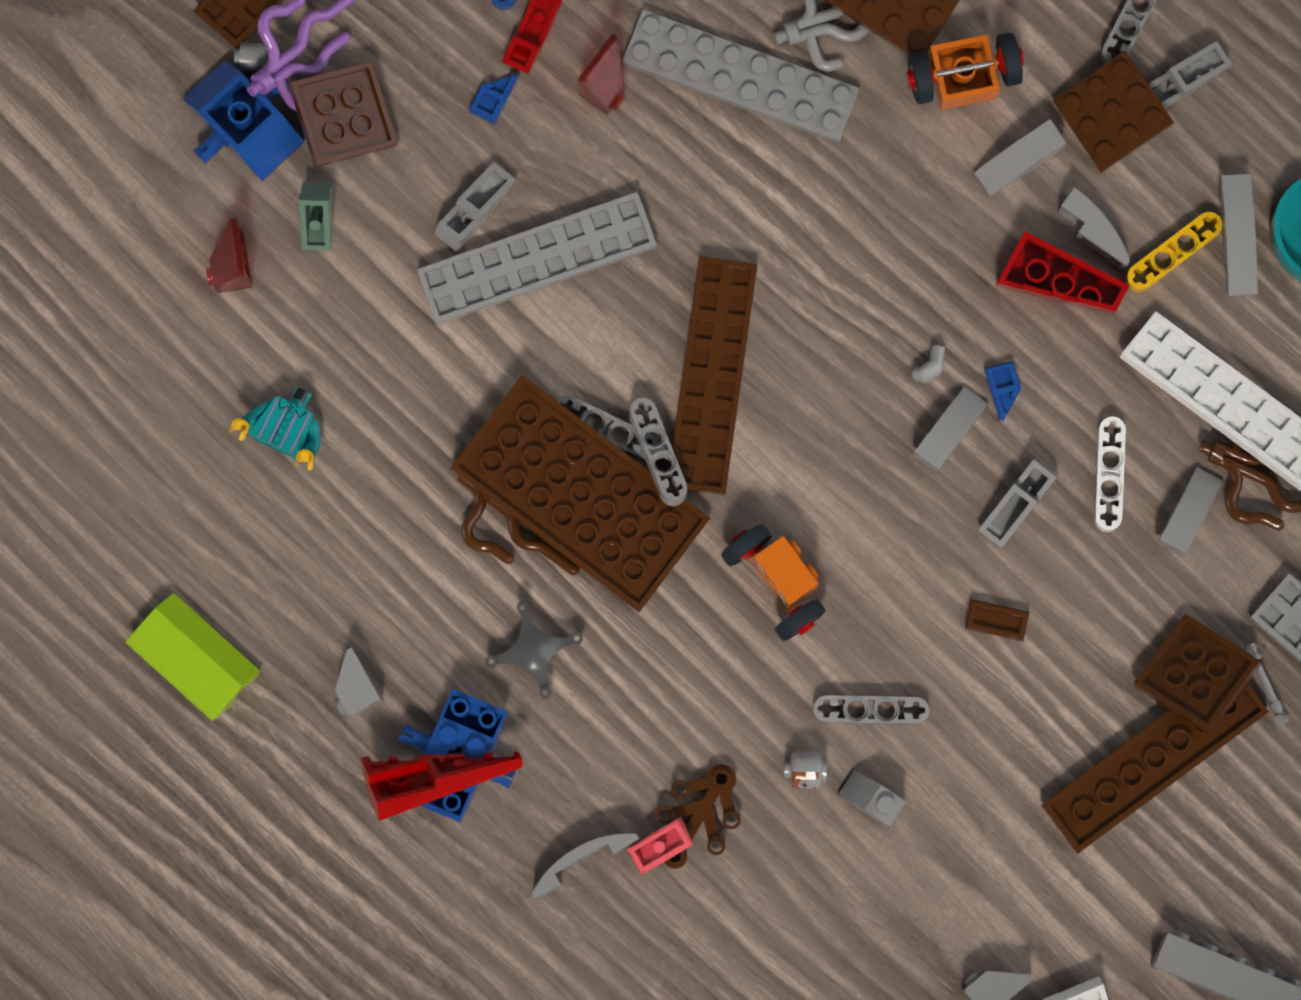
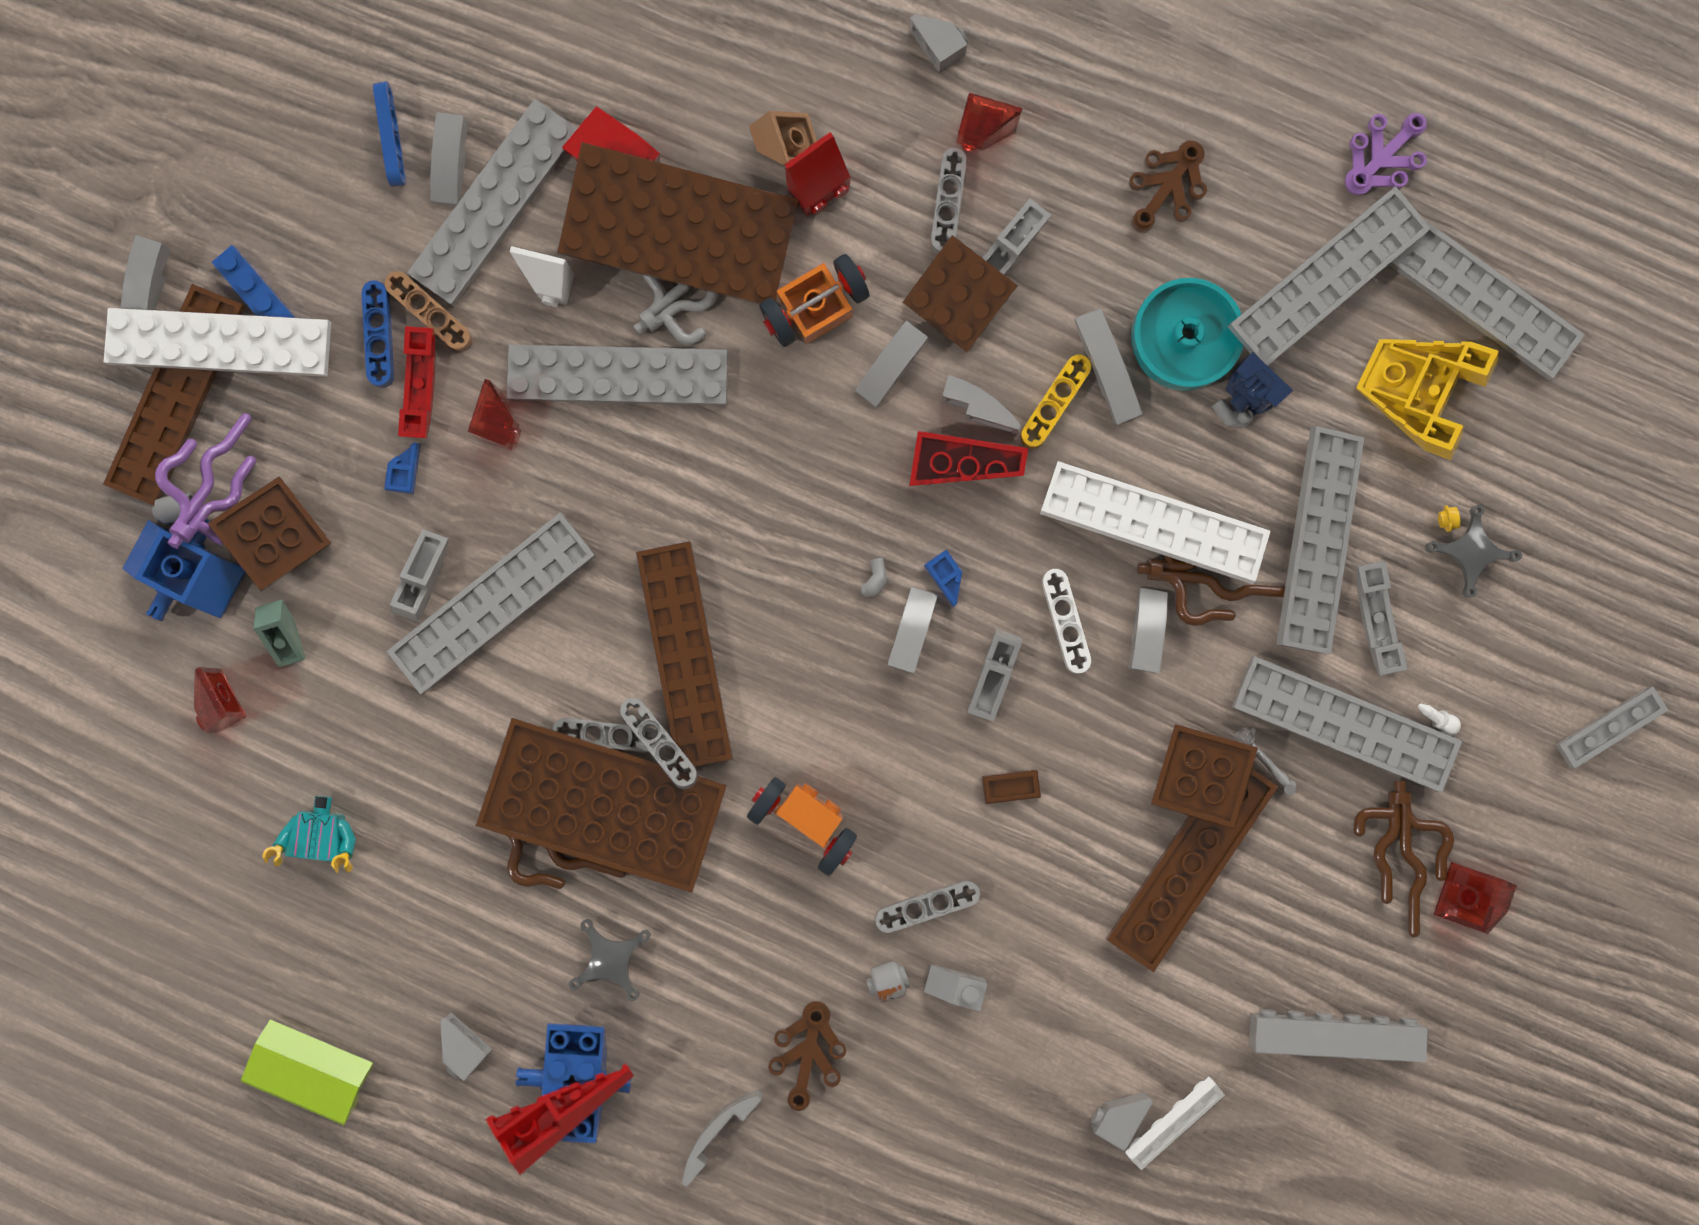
camera: 20 degrees left, 5 degrees up
(660, 846) = (782, 1096): coral slope -> none

